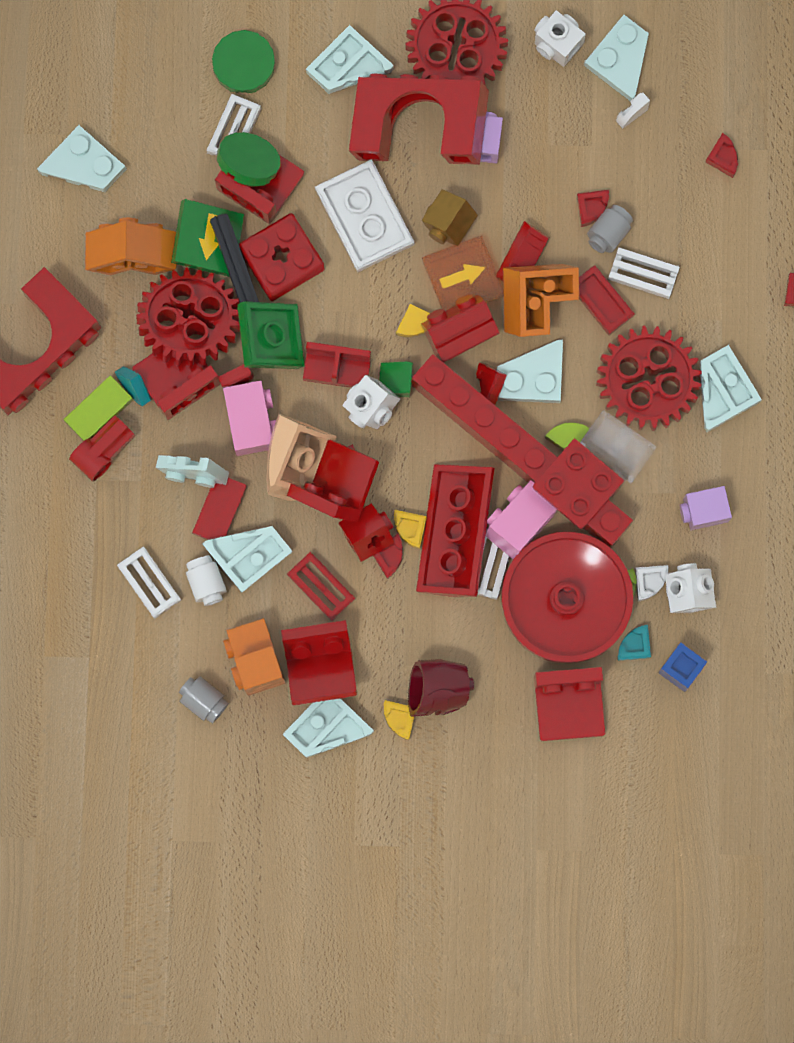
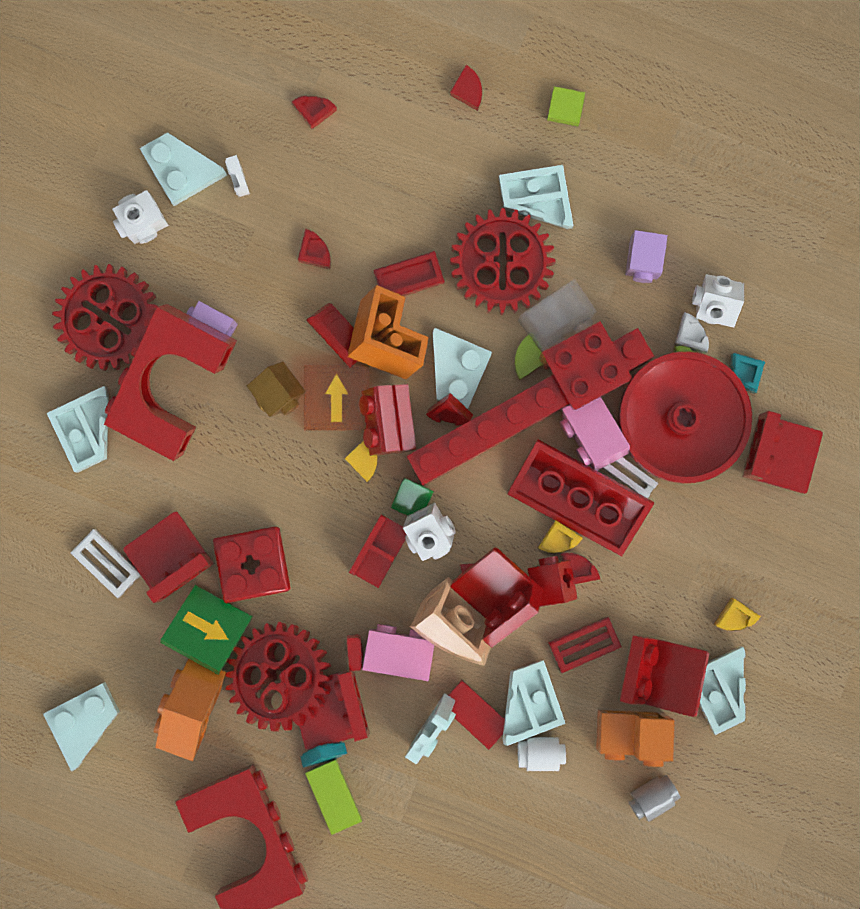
camera: 75 degrees left, 5 degrees up
(96, 455) = (378, 814): red piece -> none
(164, 605) = (516, 795): white tile -> none
(233, 258) = (254, 612): black axle -> none
(243, 61) = (42, 529): green tile -> none
(248, 159) = (144, 561): green tile -> none
(270, 335) = (326, 604): green tile -> none
(364, 215) = (240, 469): white tile -> none
(438, 687) = (726, 571): dark red helmet -> none
(609, 229) = (344, 242): light grey brick -> none
(646, 261) = (414, 206): white tile -> none
(682, 667) = (790, 334): blue panel -> none

